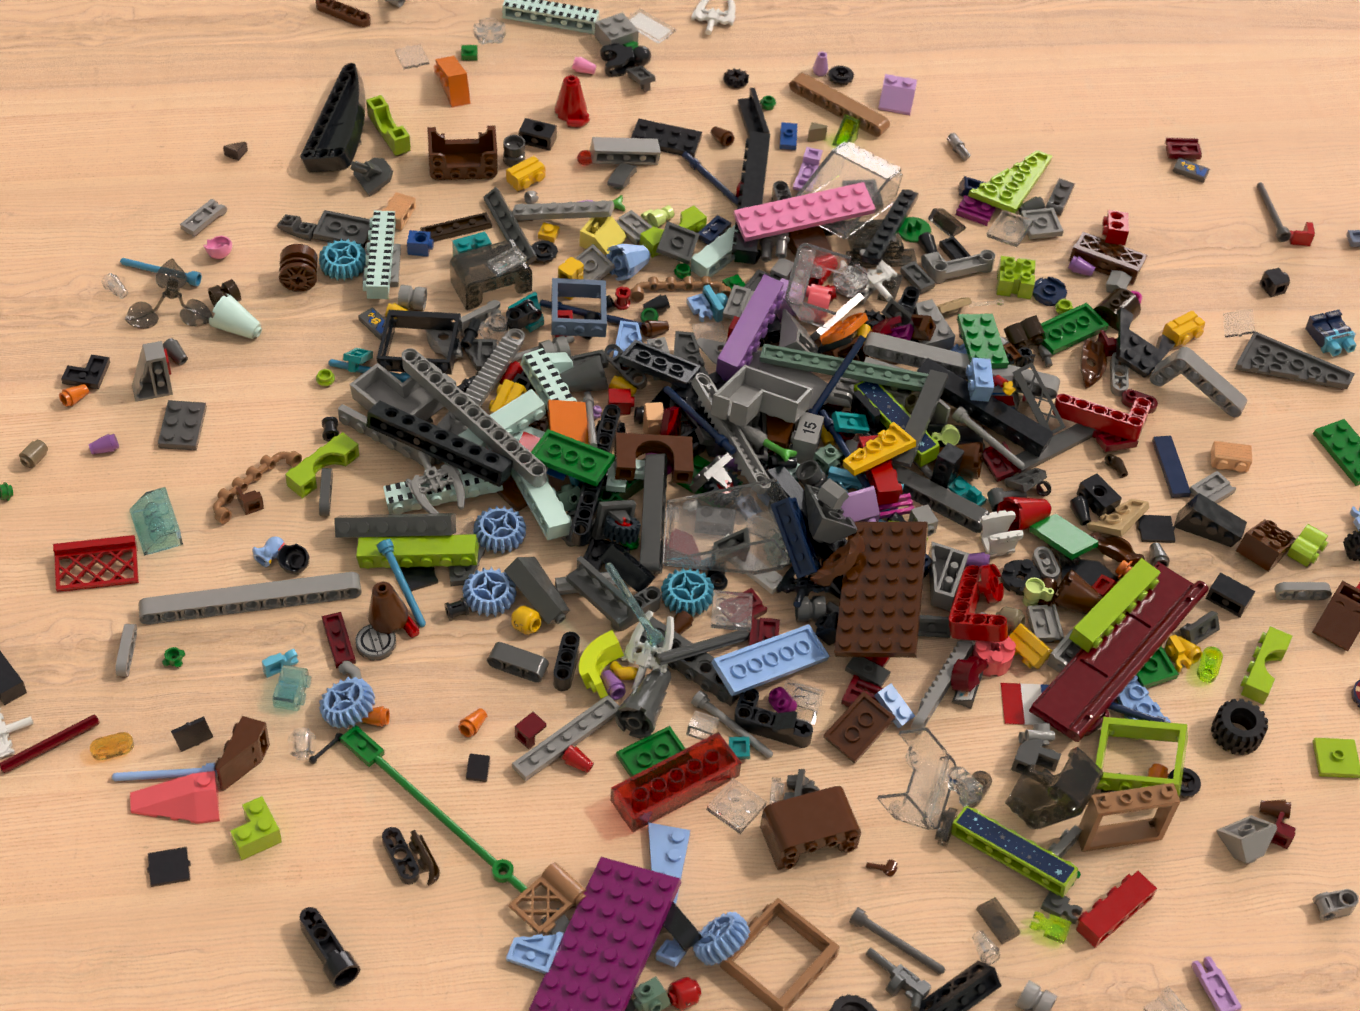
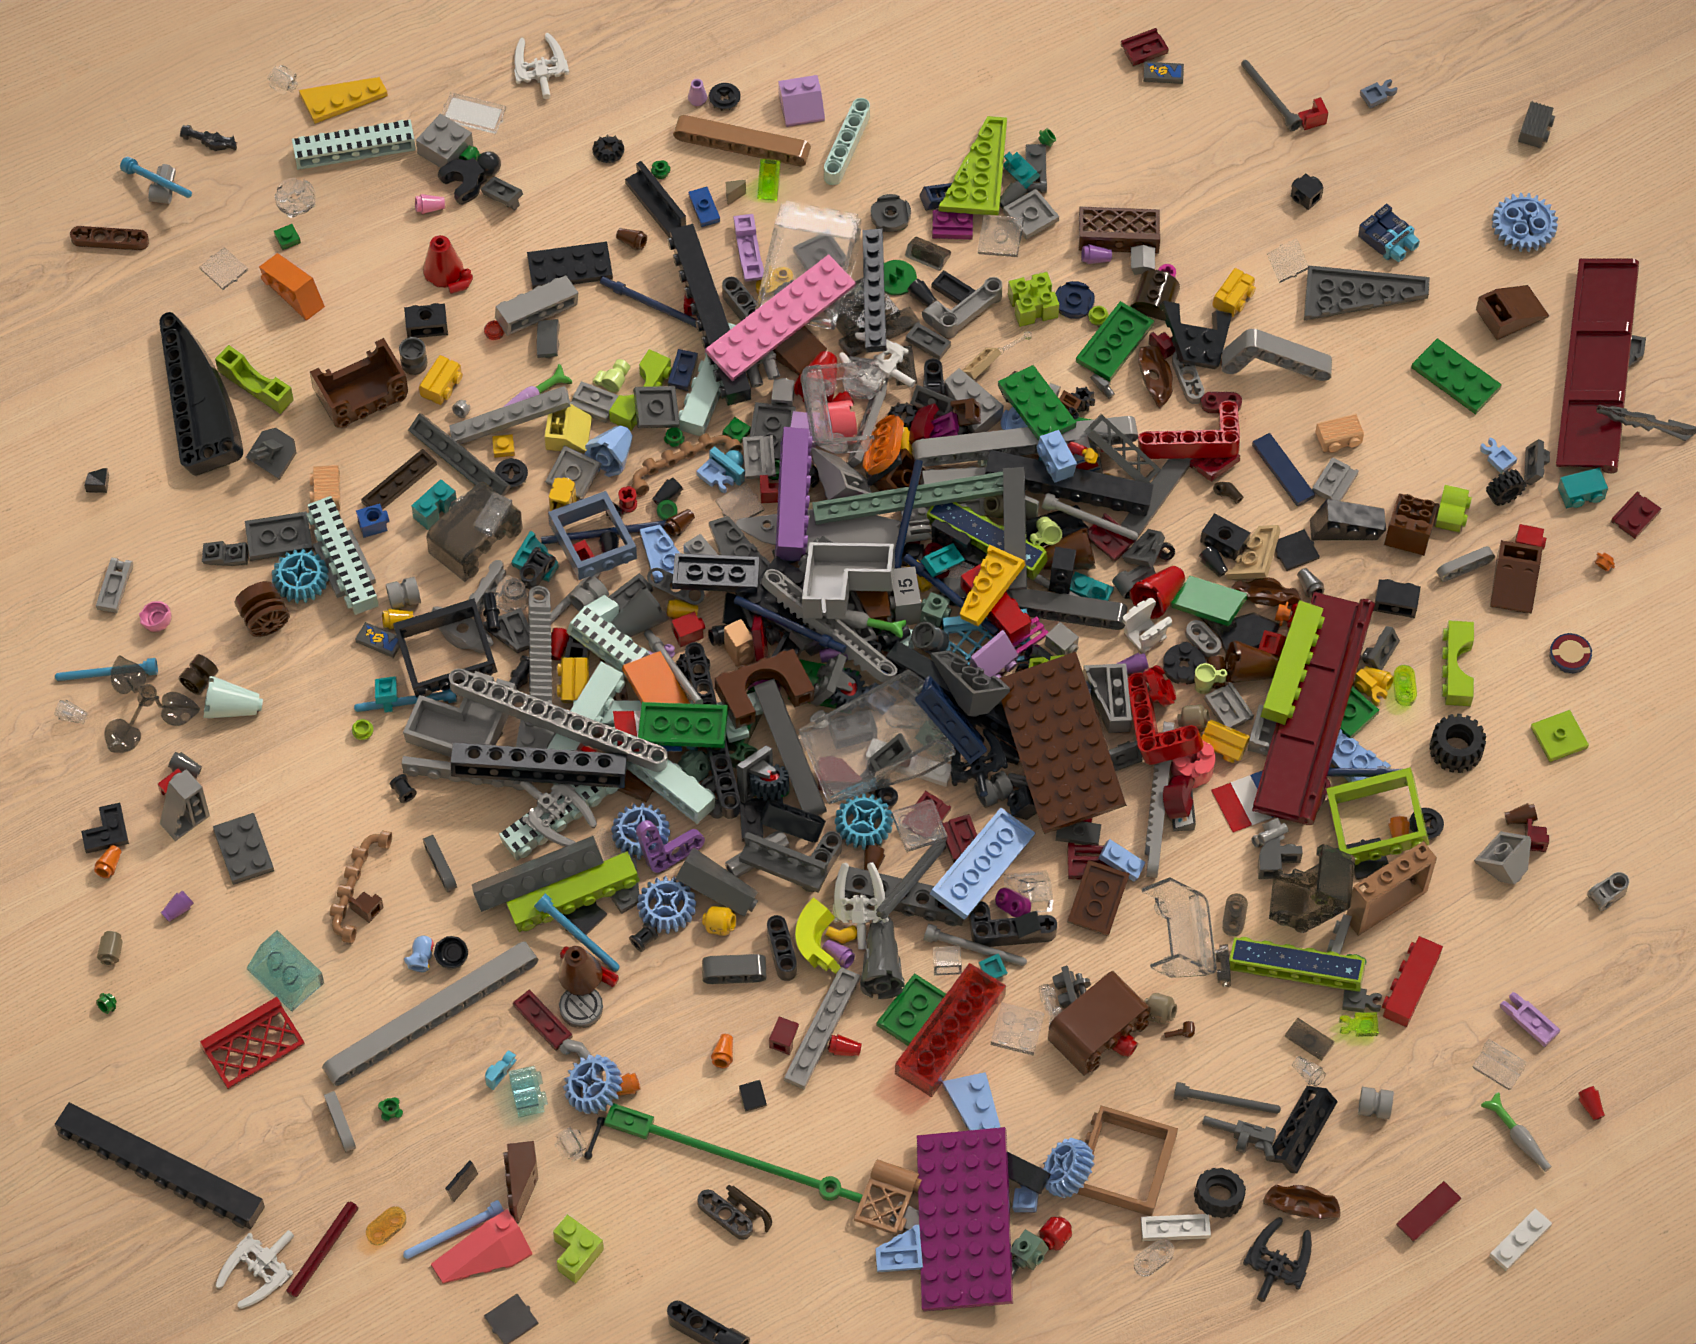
camera: 20 degrees left, 10 degrees up
(338, 451) = (427, 811): lime arch -> none
(504, 548) = (691, 839): none -> medium lavender beam
(653, 635) = (860, 888): clear light blue piece -> none
(825, 857) = (1126, 1046): none -> red brick
(832, 494) = (966, 658): light grey piece -> none
(839, 561) = (999, 743): reddish brown piece -> none
(873, 839) = (1162, 1008): none -> dark tan head
(919, 130) = (843, 151): none -> light aqua beam
(934, 193) = (890, 223): none -> dark grey plate
(958, 146) = (898, 144): light grey axle -> none
(965, 786) = (1225, 918): clear leg -> none
(1025, 333) = (1073, 369): dark brown brick -> none
(1046, 190) = (1020, 169): none -> teal hinge
(1078, 179) = (1047, 137): none -> green plate
(1116, 227) = (1113, 188): red brick -> none

